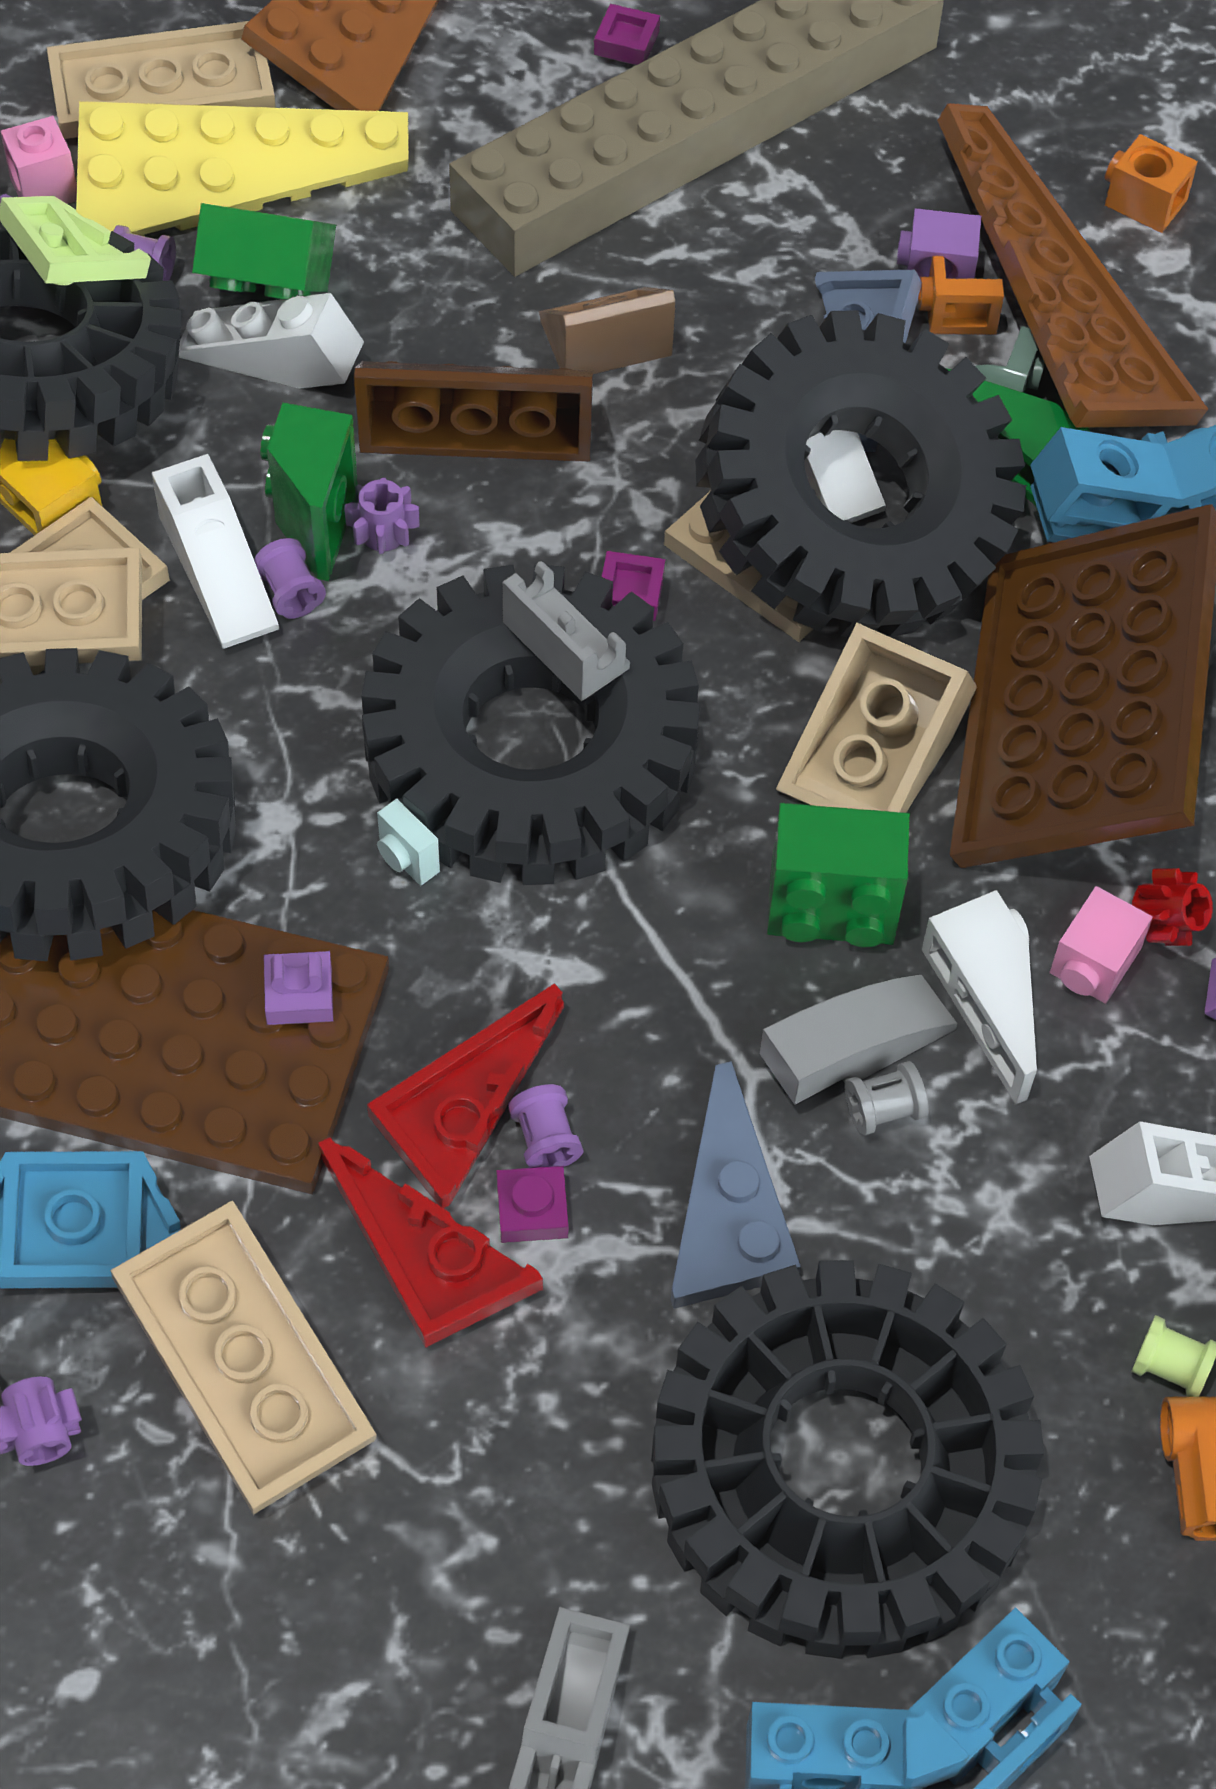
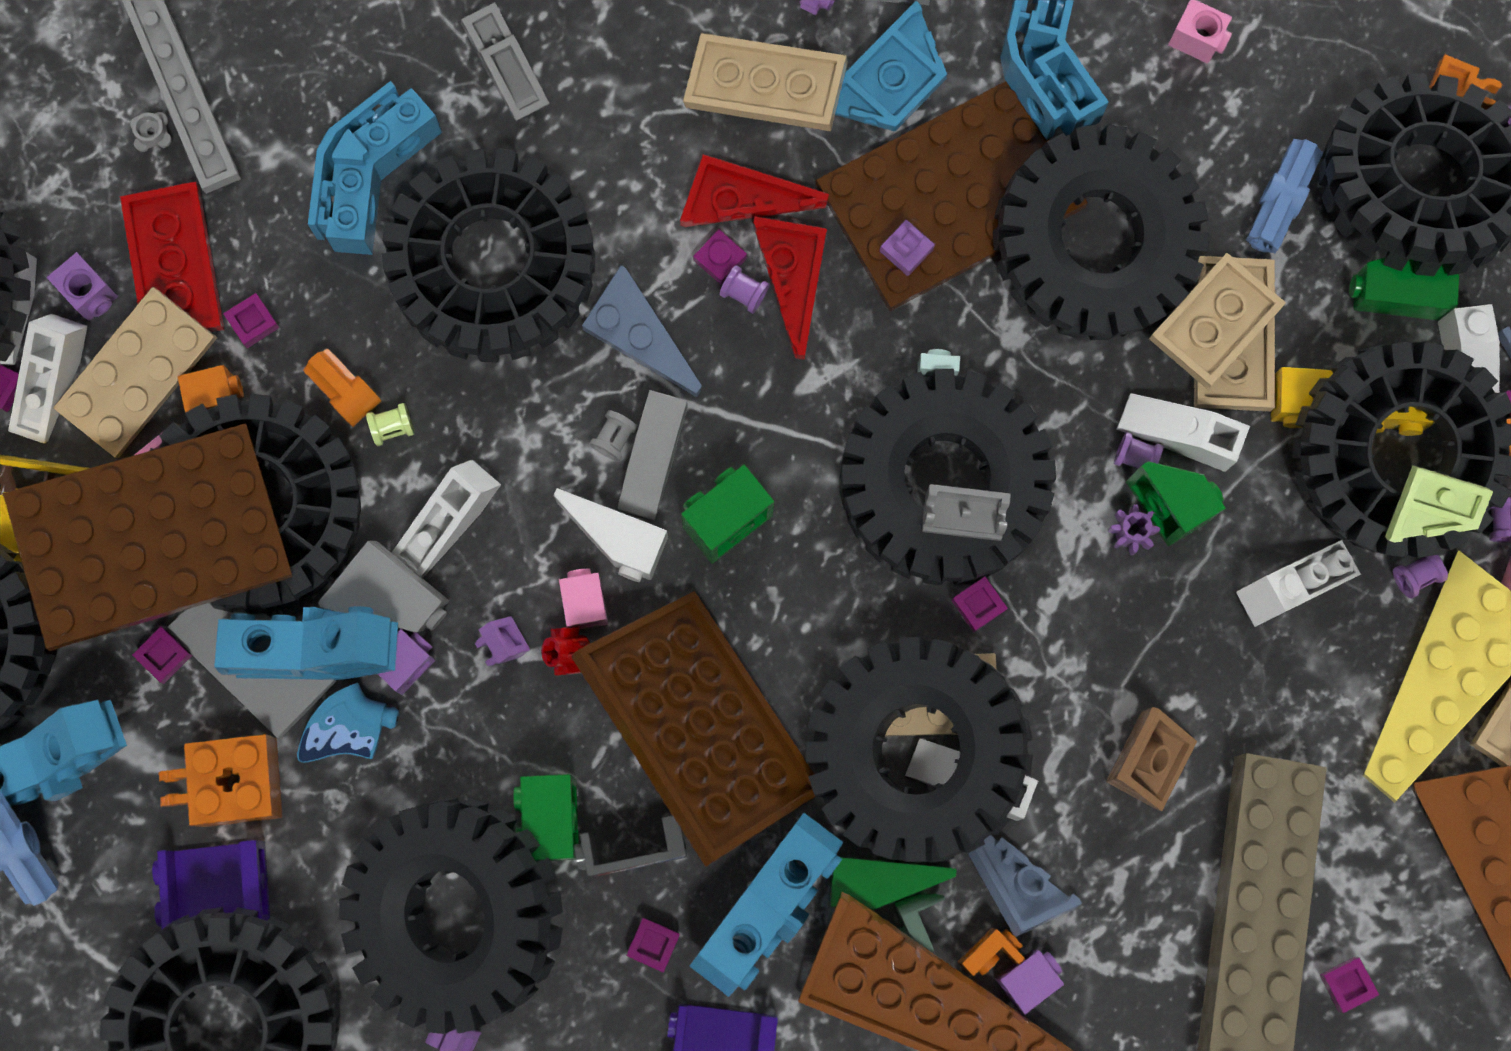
camera: 135 degrees right, 20 degrees up
(265, 249) = (1354, 618): green brick -> none
(474, 411) = (1159, 633): reddish brown slope -> none
(877, 726) = (785, 627): tan slope -> none

